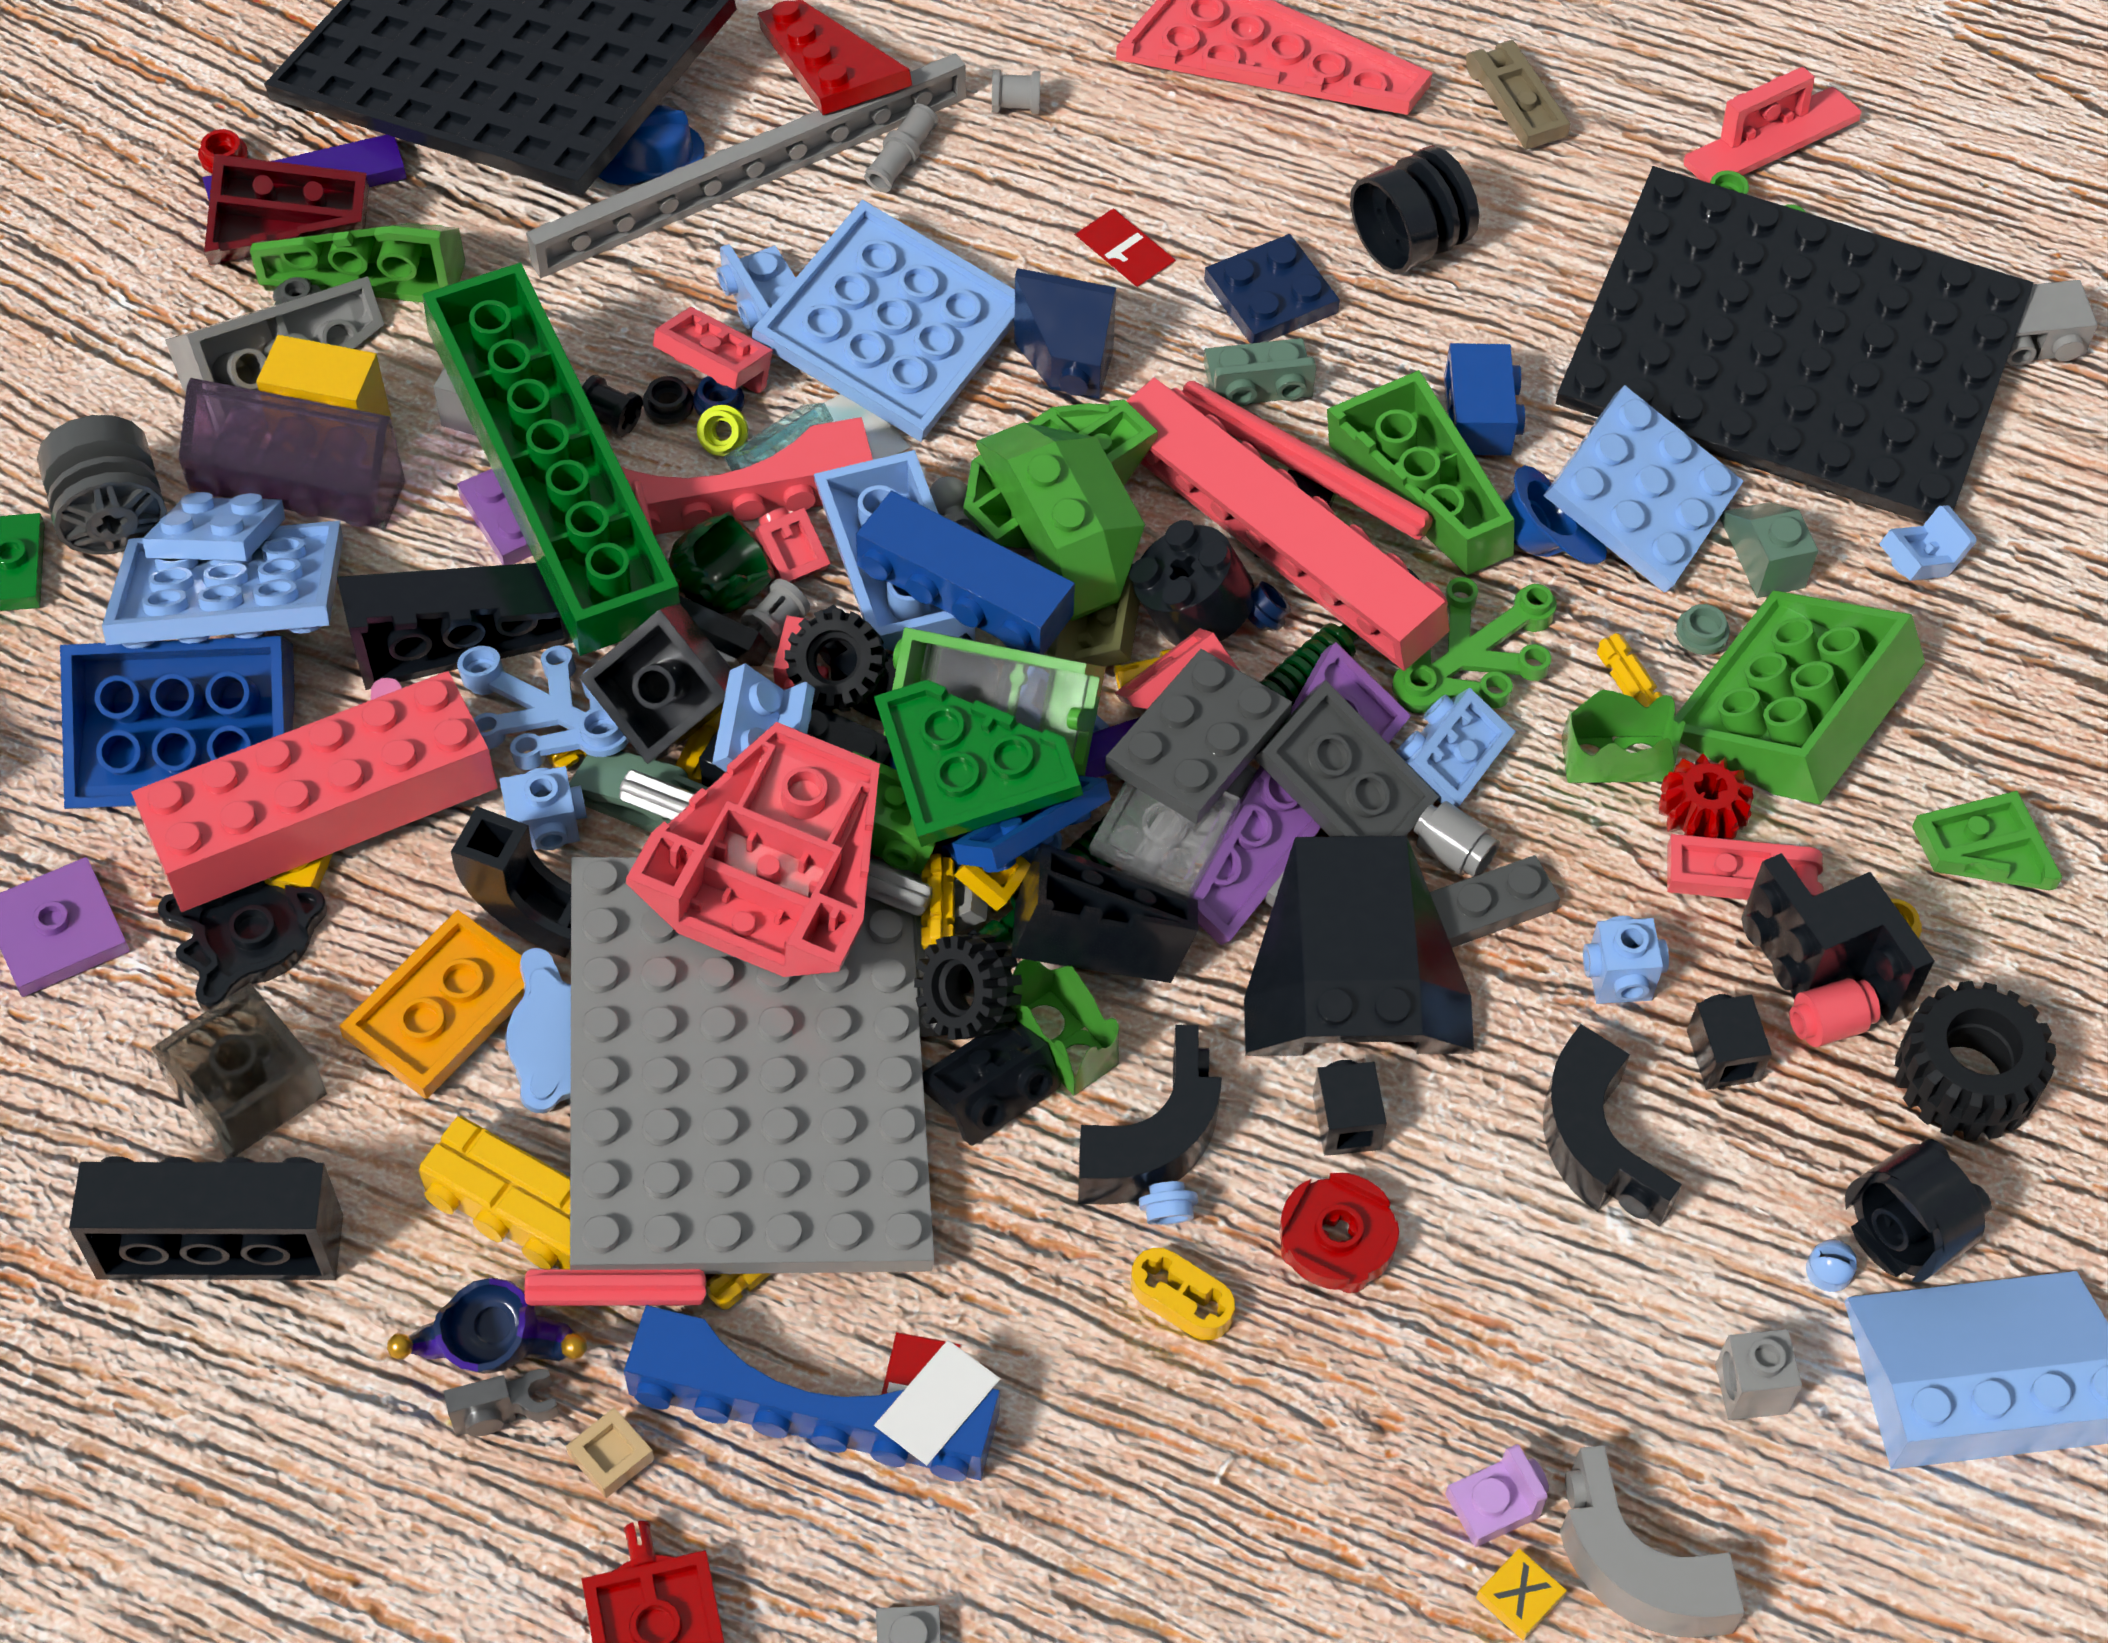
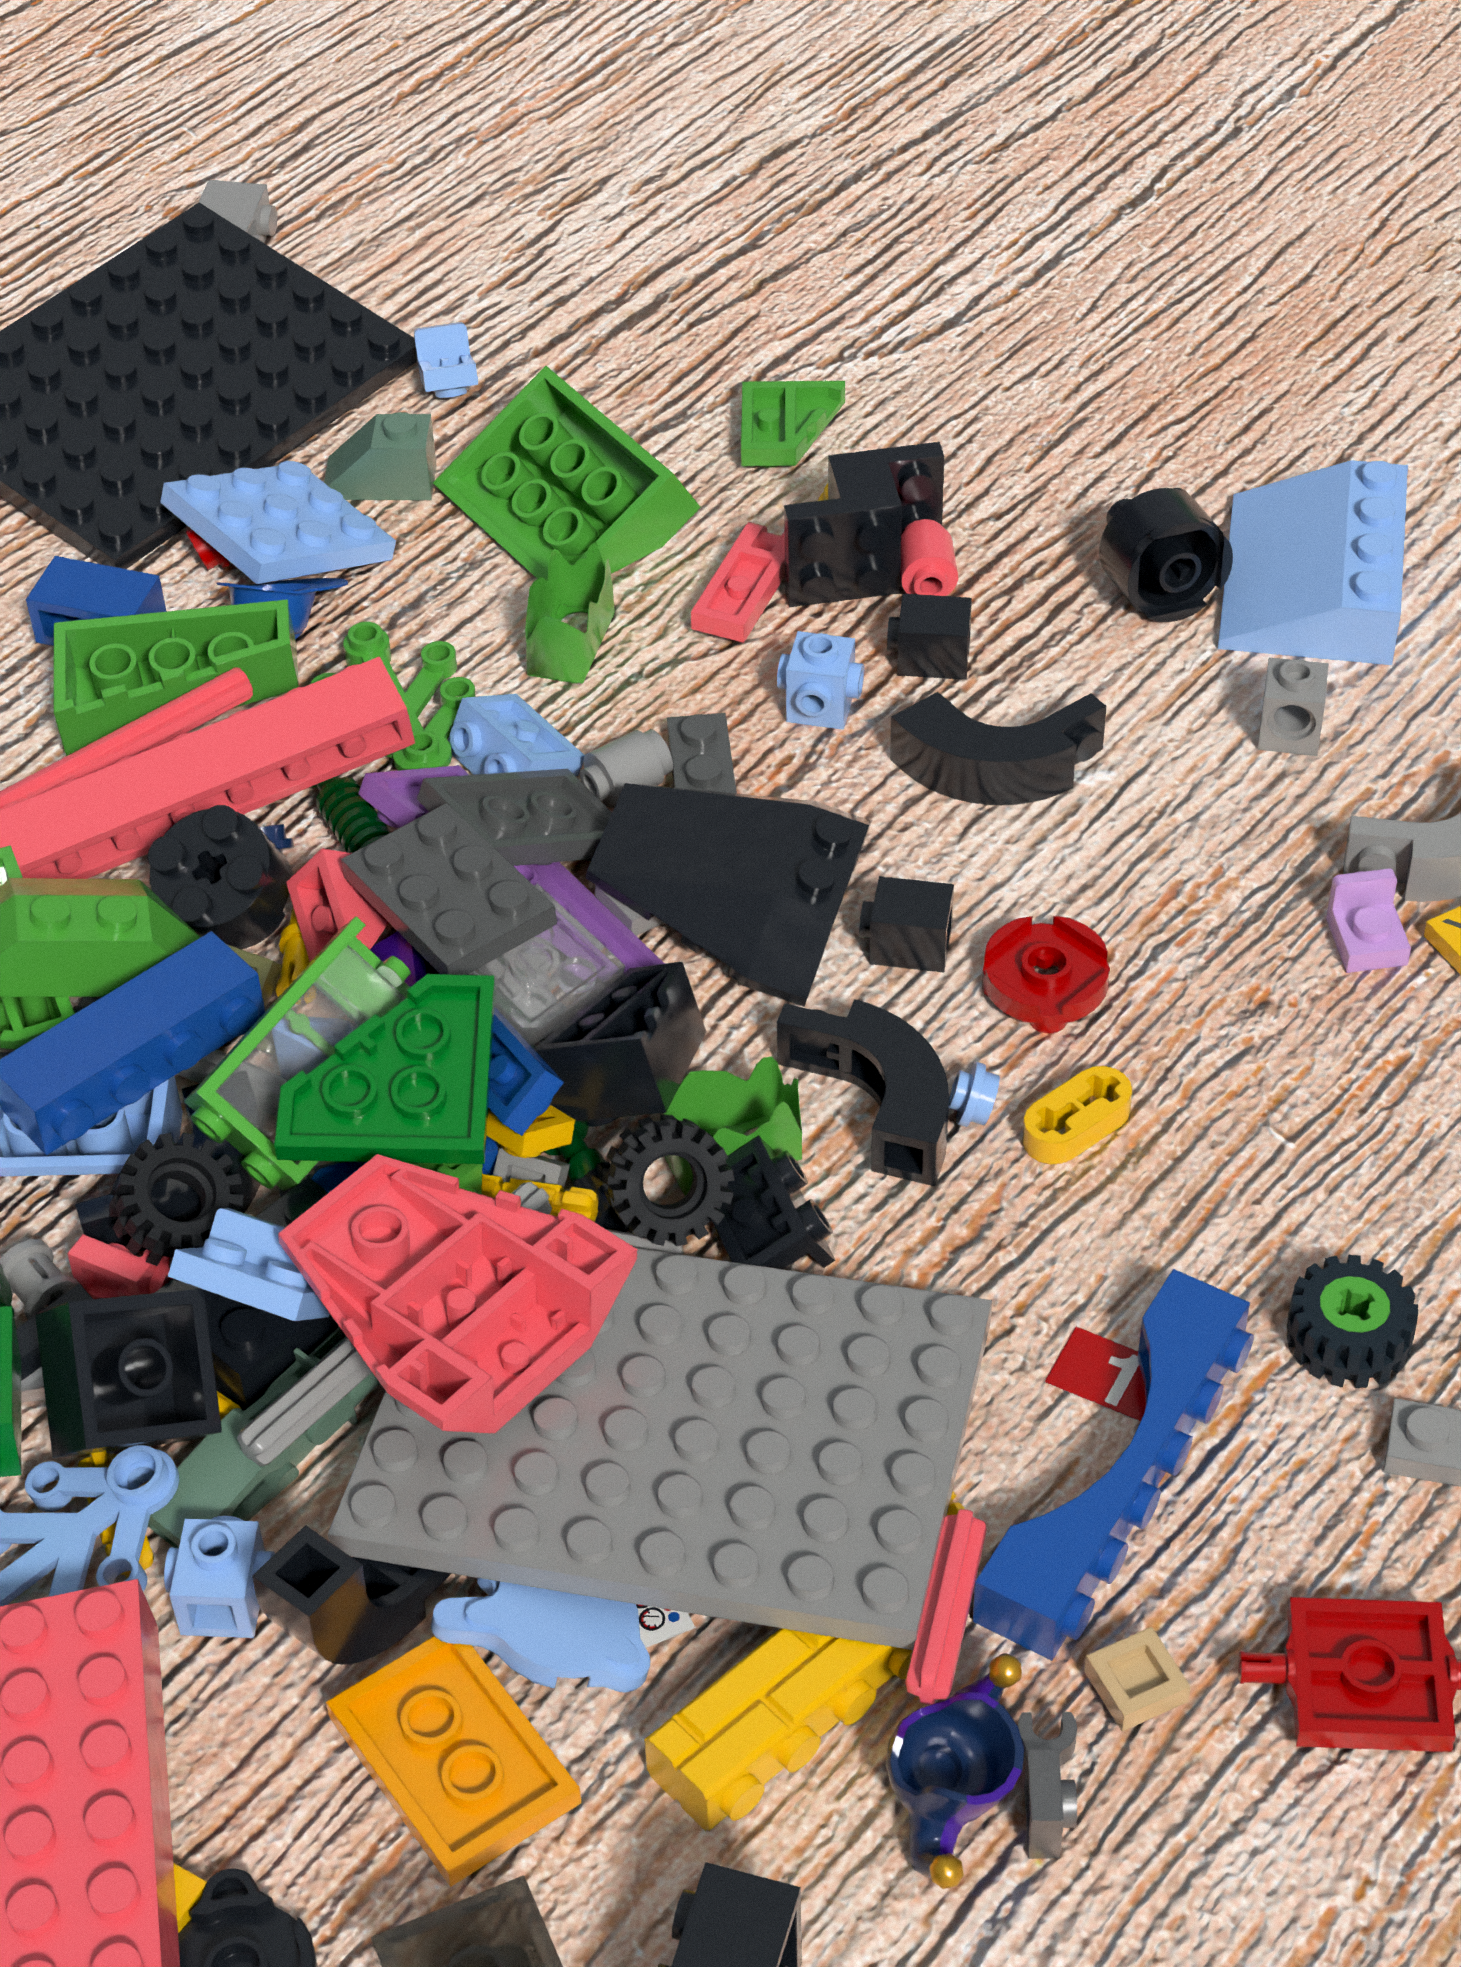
camera: 70 degrees left, 10 degrees down
(937, 1402) = (1175, 1325): white sticker -> none
(1012, 1578) = (1328, 1326): none -> black wheel
(1627, 669) = (482, 601): yellow axle -> none
(1703, 629) = (457, 536): sand green plate -> none
(1705, 799) = (659, 581): red gear -> none
(1828, 1272) = (1193, 642): light blue hinge -> none
(1999, 1030) = (1016, 482): black tyre -> none

